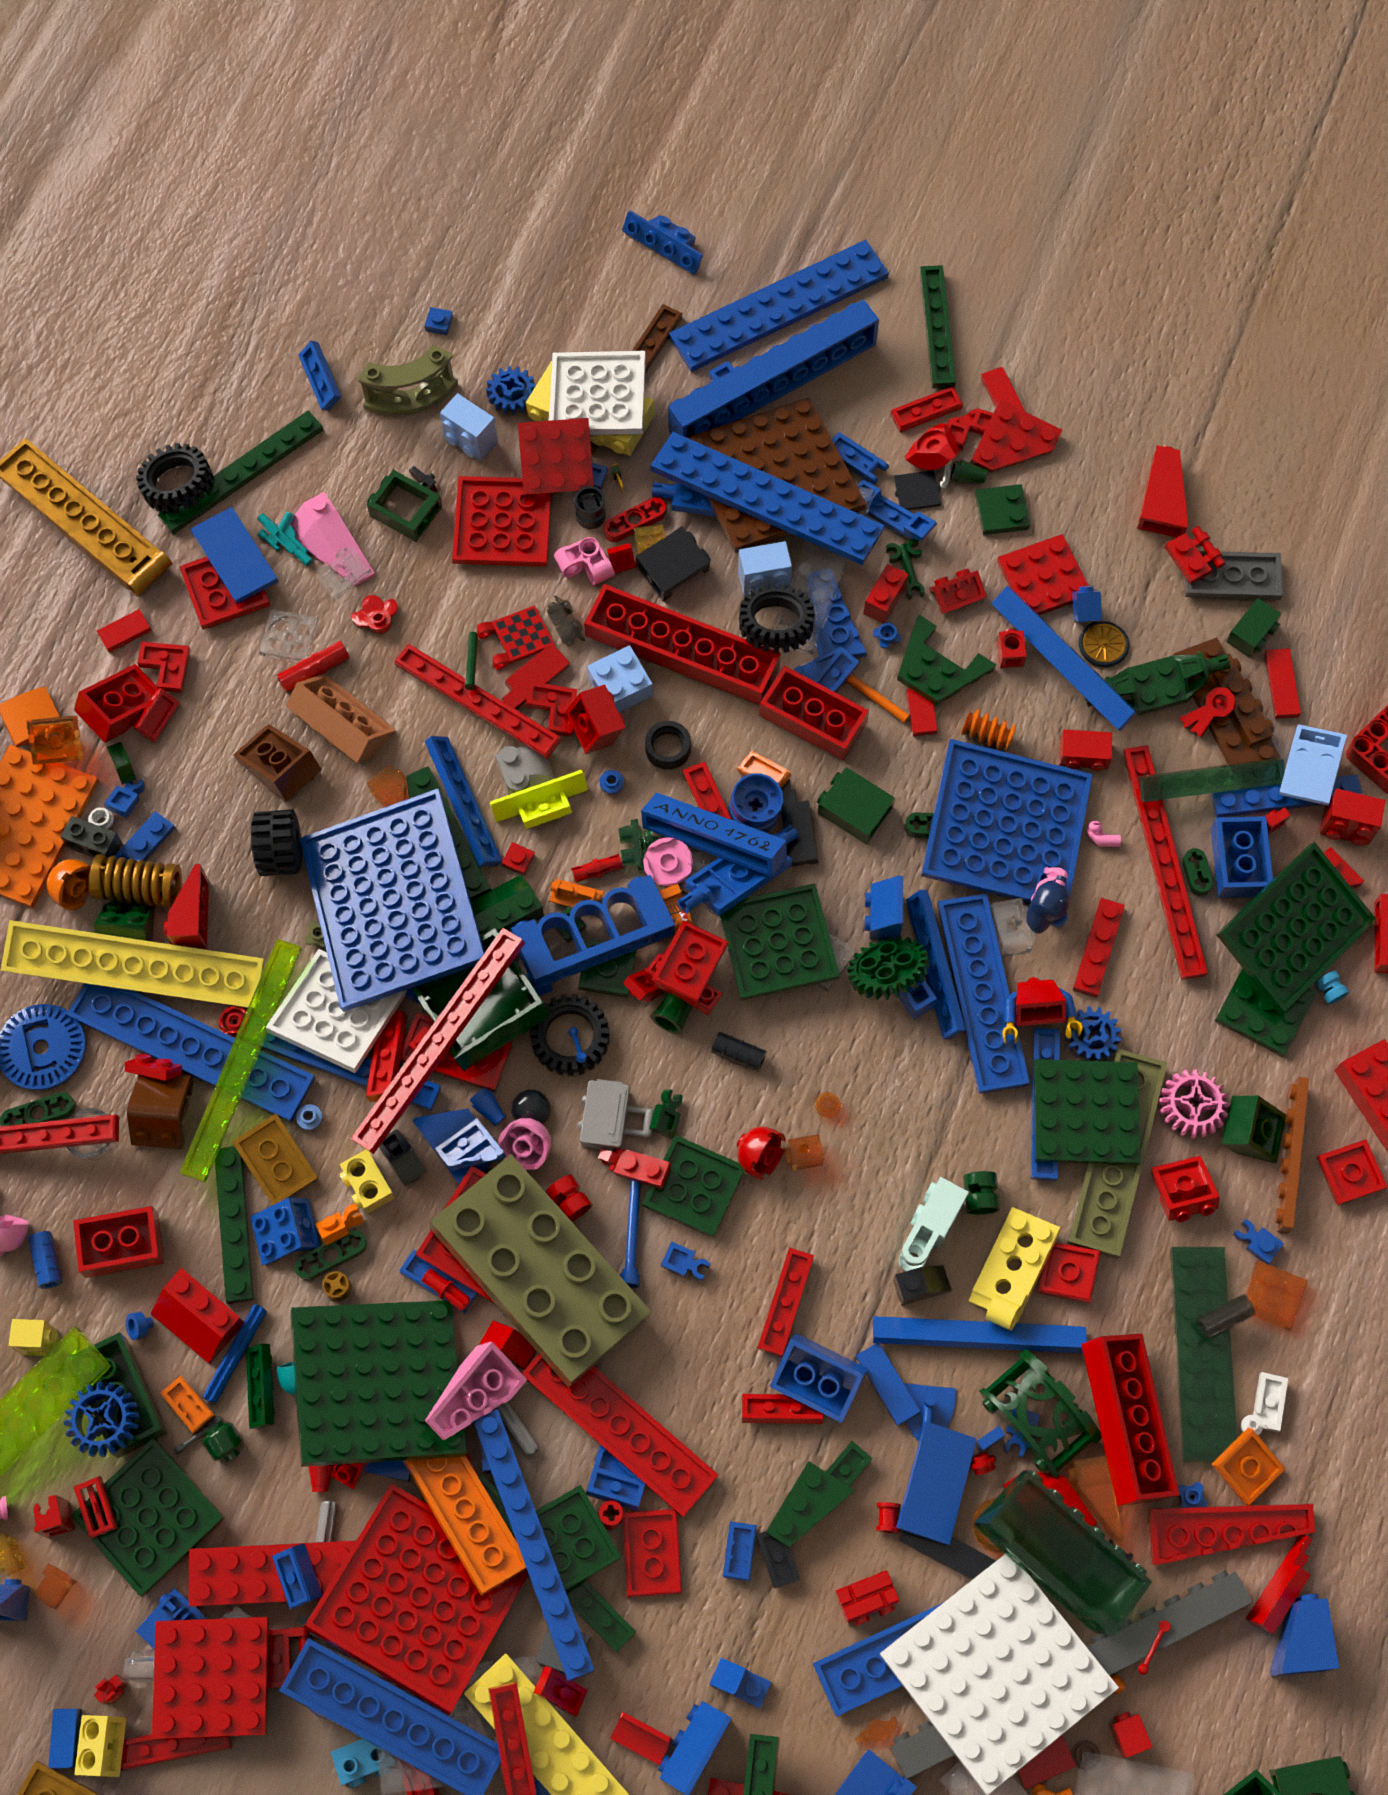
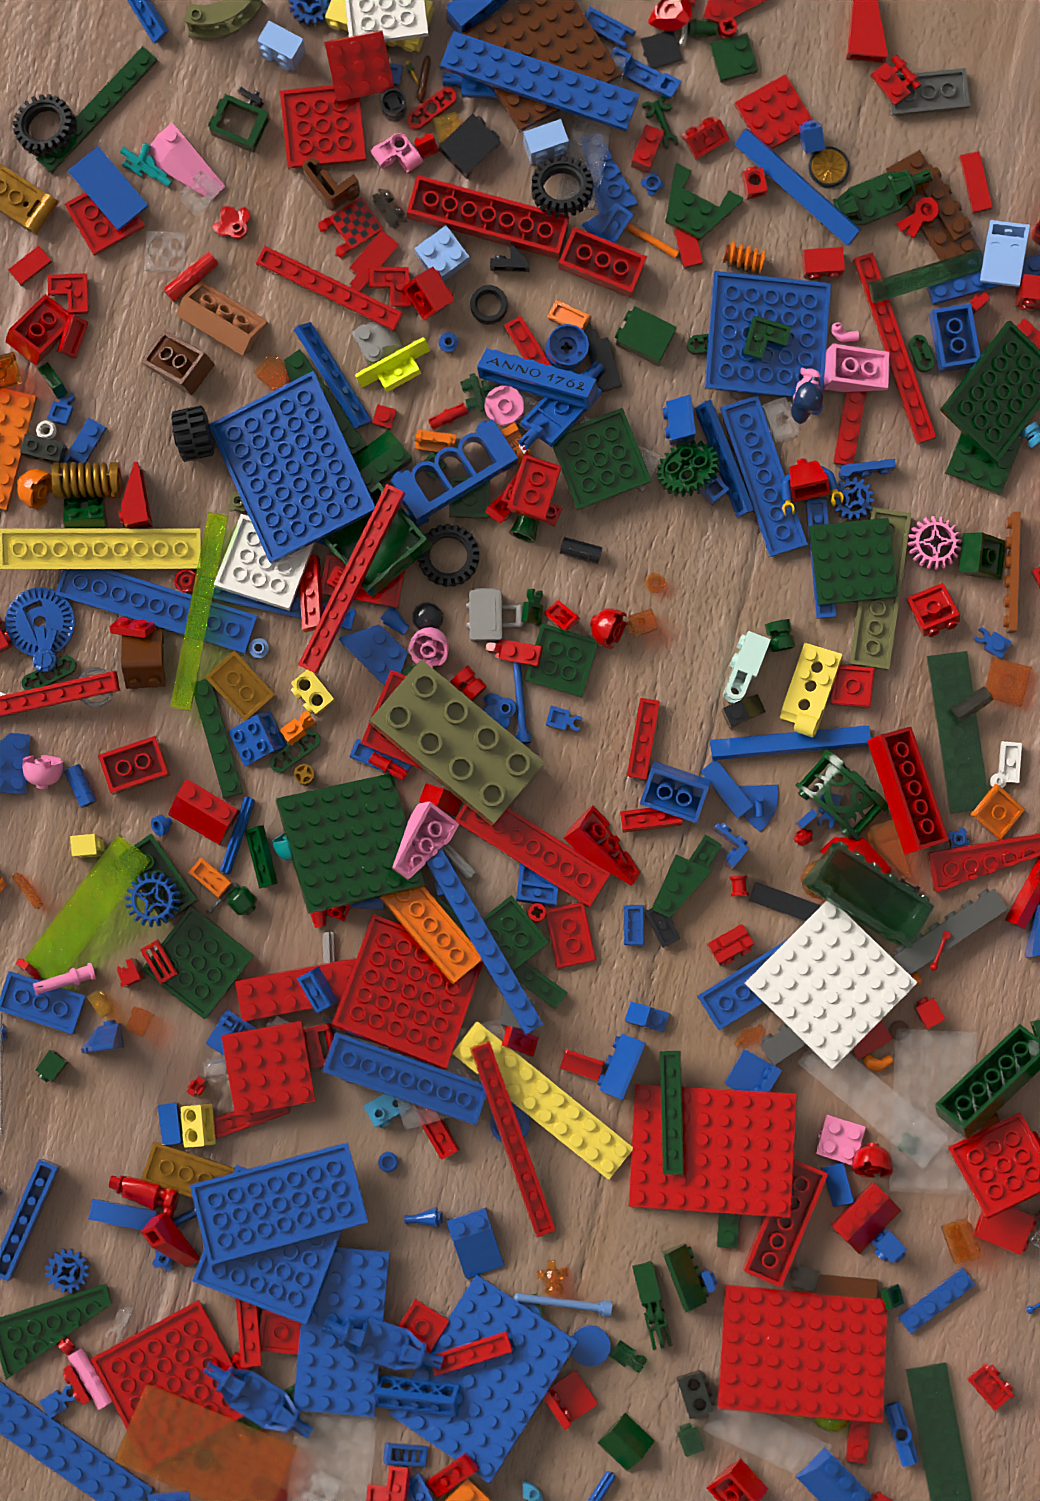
camera: 10 degrees left, 15 degrees up
(36, 1091) = (45, 659): none -> blue piece
(402, 1158) = (337, 671): black slope -> none
(469, 1147) = (387, 656): wing -> none
(471, 661) = (319, 254): dark green bar -> none
(498, 594) = (339, 193): none -> reddish brown piece
(580, 1057) = (461, 573): blue hinge -> none
(599, 1234) = (495, 709): none -> blue plate
(631, 485) = (423, 78): none -> reddish brown piece
(703, 1129) = (562, 616): none -> red slope
(704, 1430) = (596, 842): none -> red wedge
(706, 702) = (516, 263): none -> black slope
(894, 1456) = (735, 854): none -> blue bracket
(936, 1483) = (771, 856): blue tile -> none
(999, 474) = (727, 22): none -> red bush
(1003, 816) = (764, 331): none -> dark green plate
(1113, 877) = (855, 369): none -> bright pink slope
(1116, 999) = (866, 468): none -> blue plate
(1254, 627) = (948, 138): dark green brick -> none

